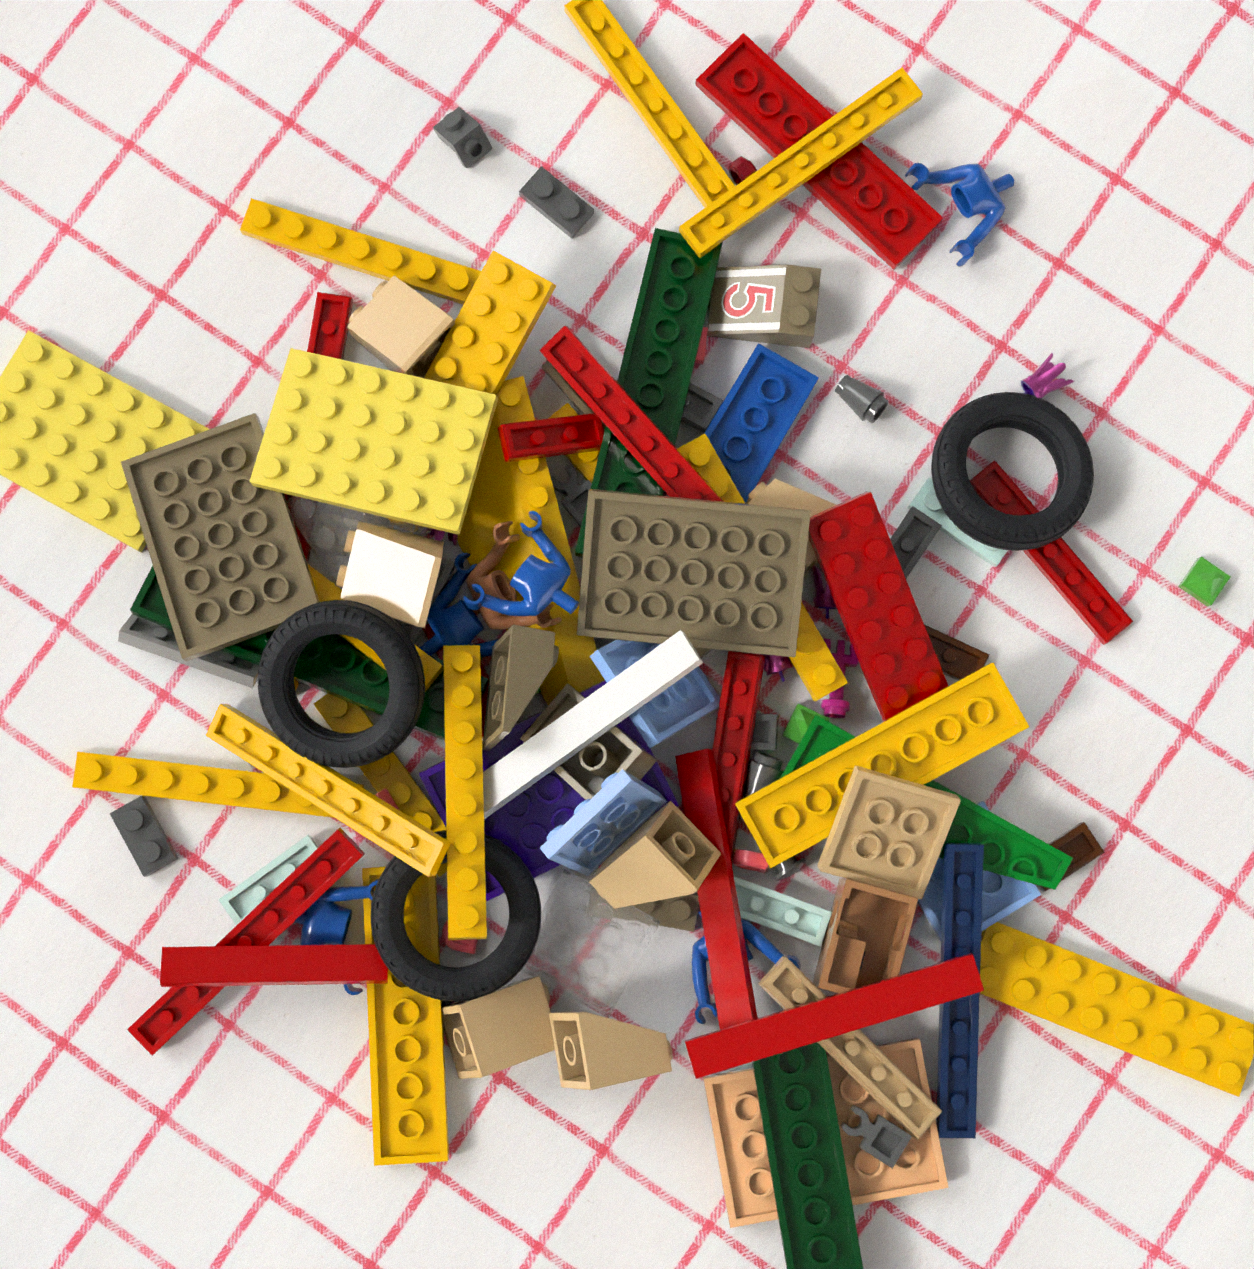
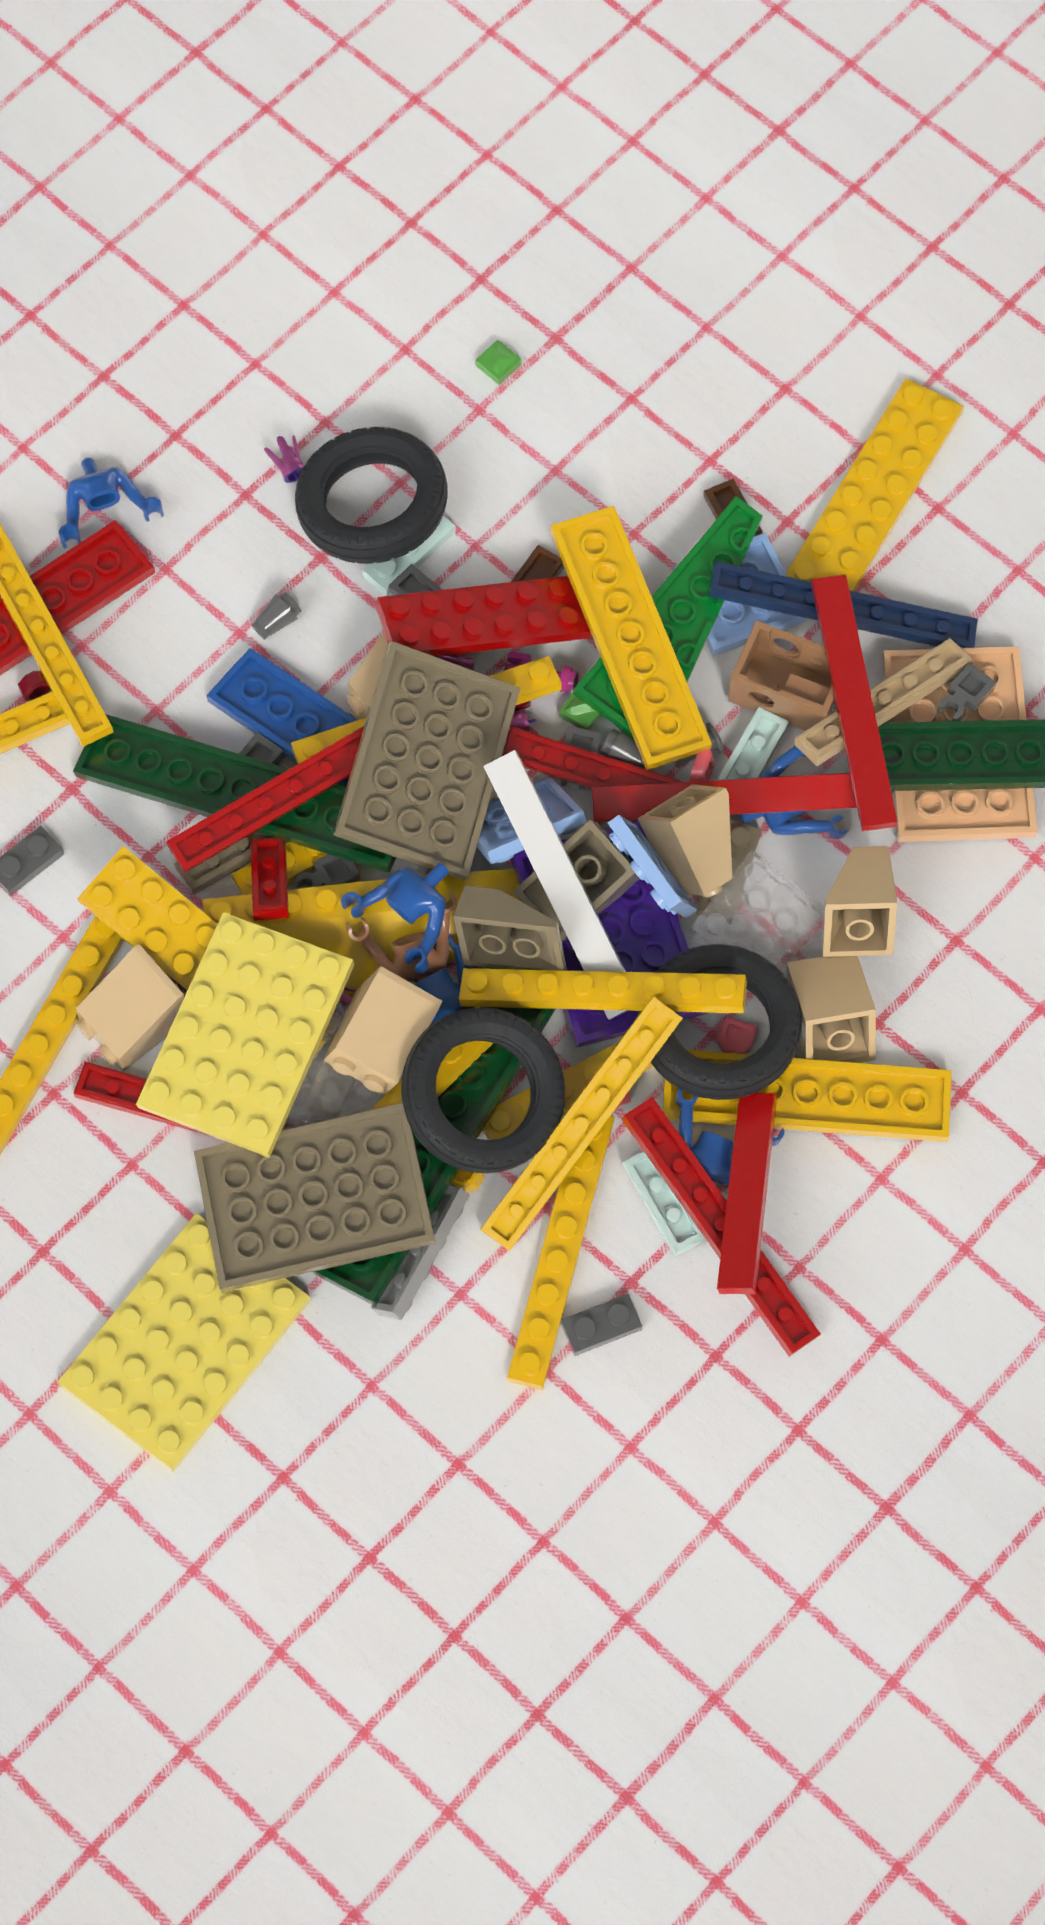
camera: 80 degrees left, 15 degrees down
(765, 304) = (169, 680): dark tan slope -> none
(888, 832) = (692, 636): tan plate -> none
(1056, 559) = (463, 474): red tile -> none

